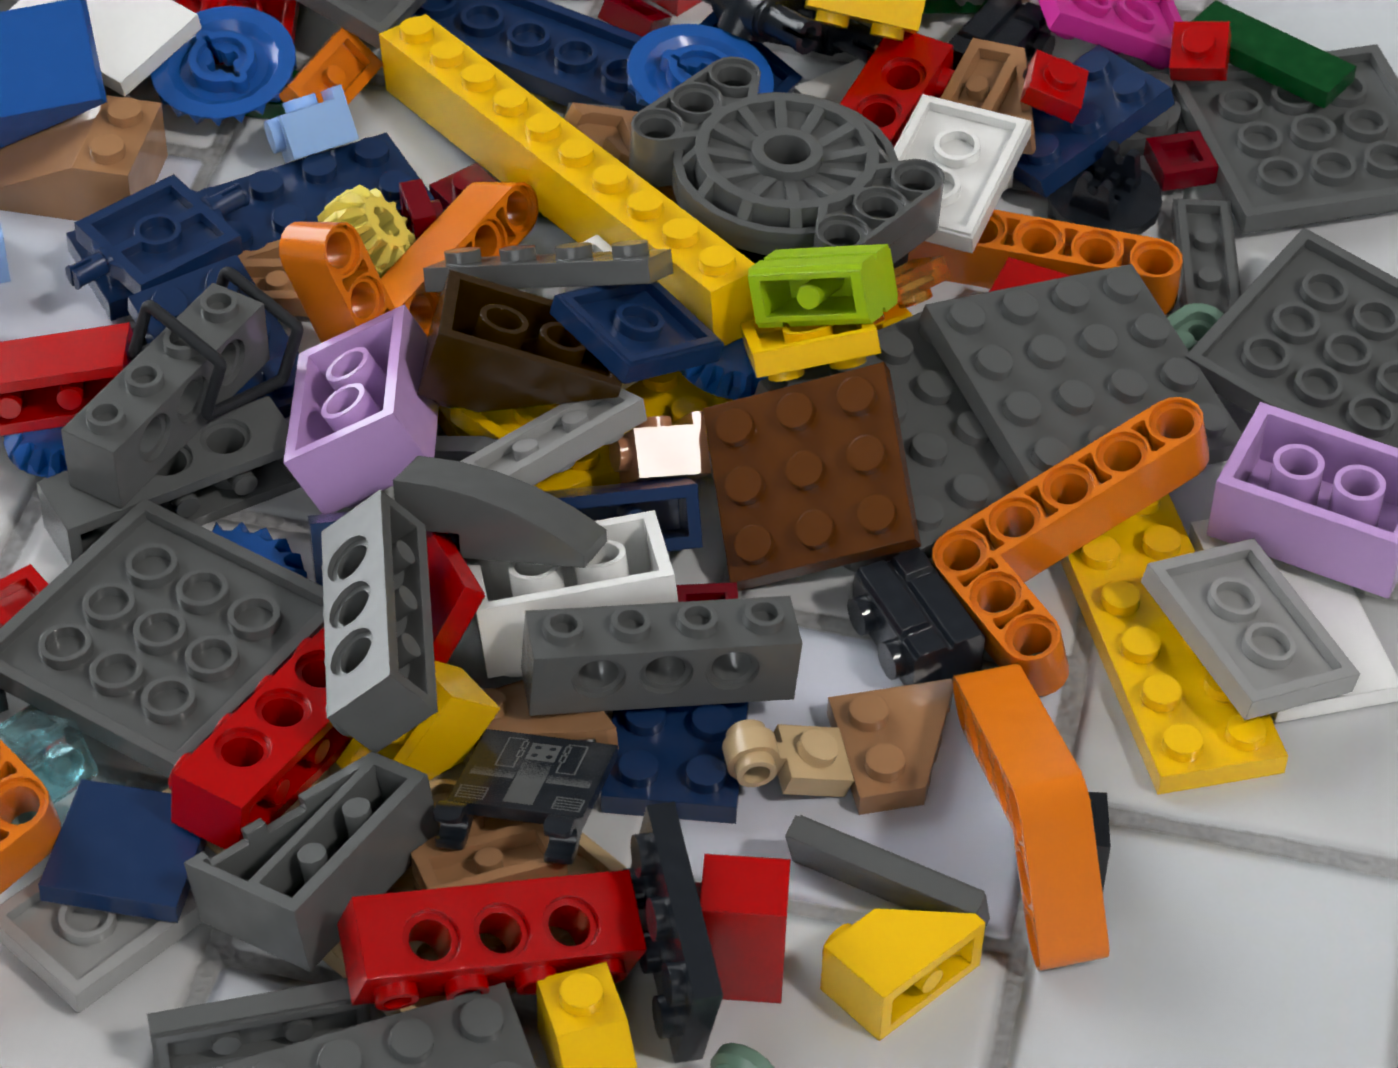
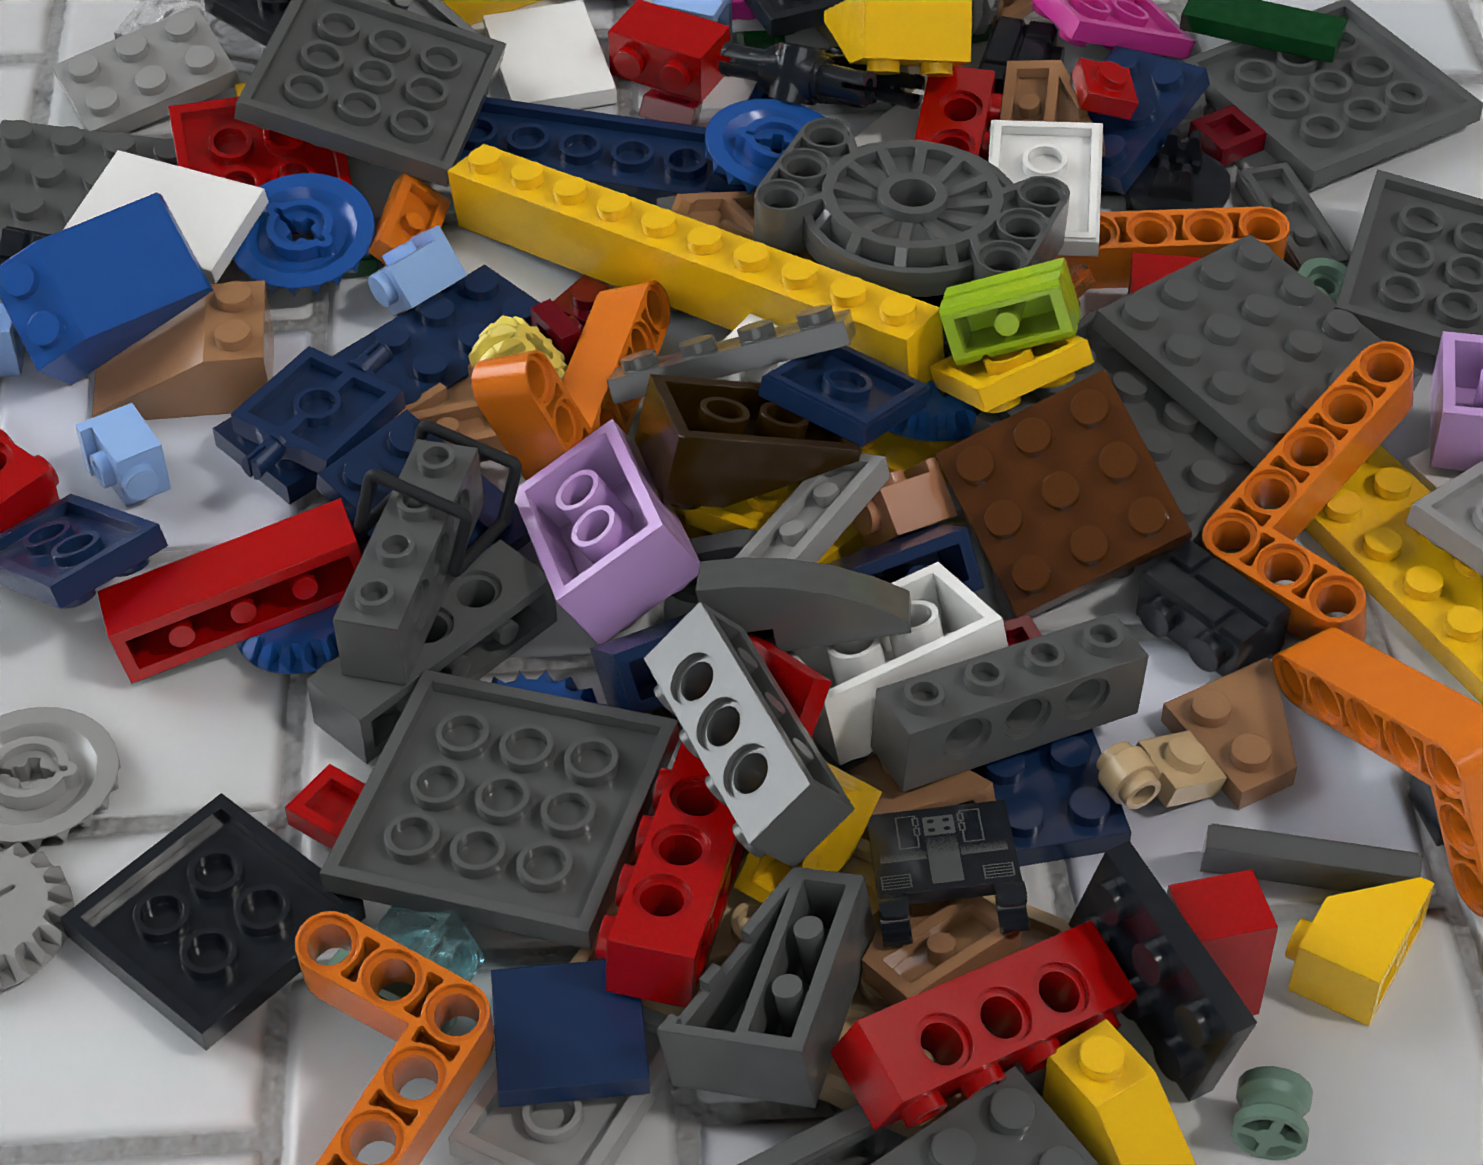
camera: 15 degrees left, 0 degrees up
(1200, 51) = (1206, 32): red plate -> none

